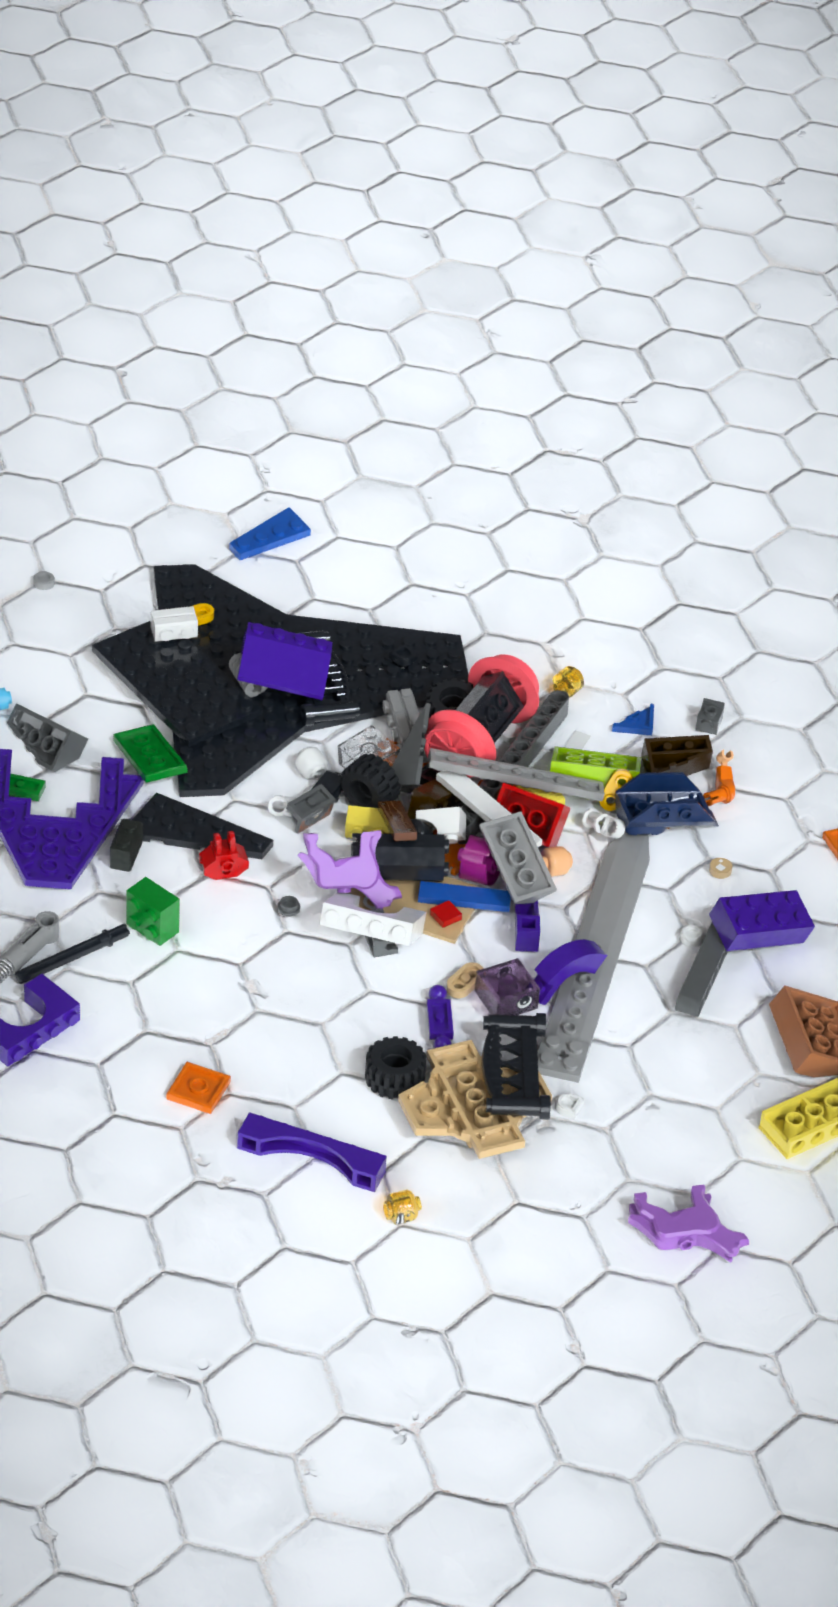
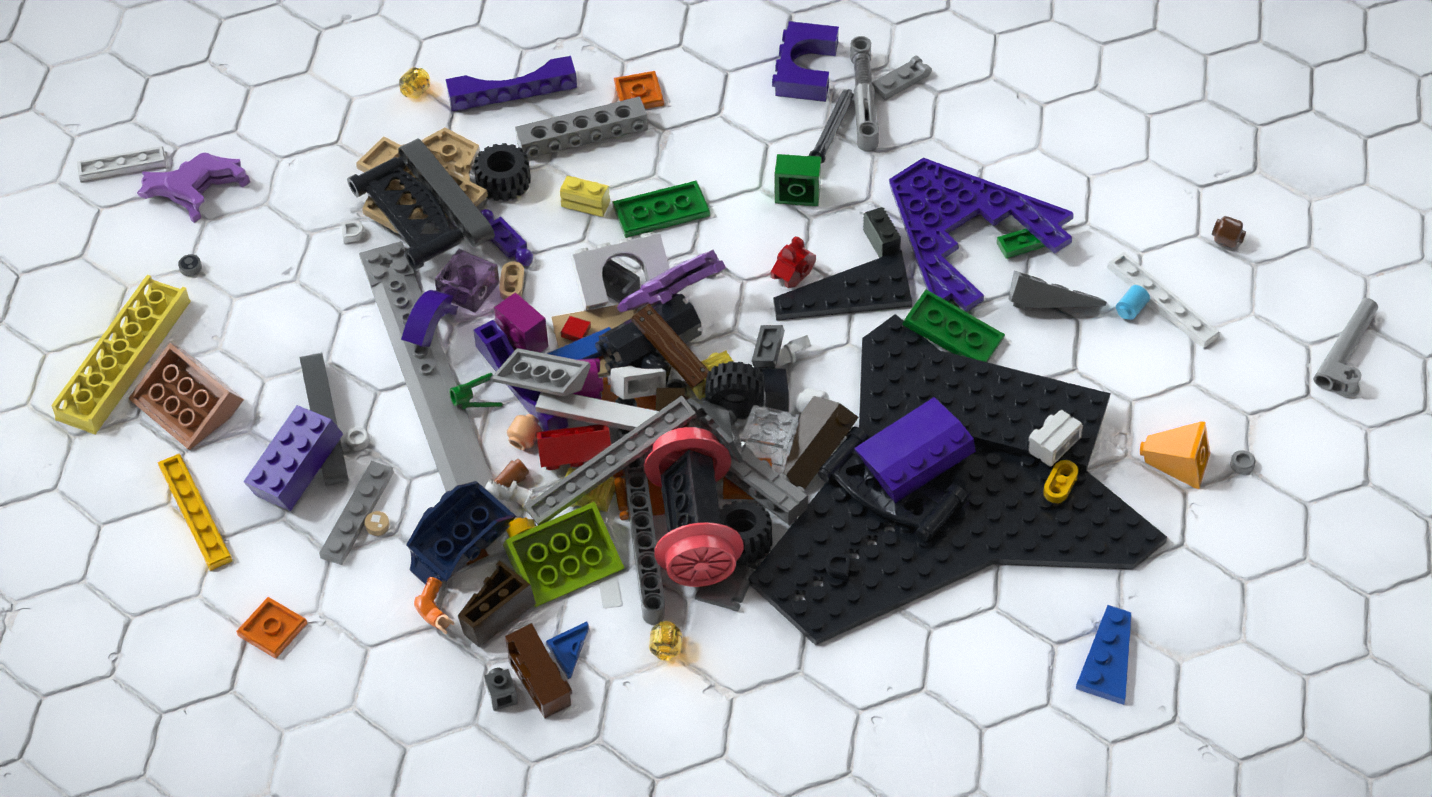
camera: 150 degrees right, 10 degrees up
(85, 593) = (1179, 452): none -> light orange slope
(281, 975) = (661, 209): none -> green tile
(287, 1073) = (582, 127): none -> light grey brick
(329, 729) = (817, 436): none -> dark brown wedge
(341, 1009) = (585, 196): none -> light yellow brick
(469, 1055) = (447, 192): none -> dark grey beam
(495, 923) = (522, 324): none -> magenta brick
(583, 905) = (463, 393): none -> green plant
(587, 840) = (513, 471): none -> dark orange cone
(676, 708) = (537, 671): none -> reddish brown wedge
(730, 884) = (356, 510): none -> light grey plate
(739, 1154) = (190, 265): none -> dark grey tile
(744, 1293) = (121, 163): none -> white tile

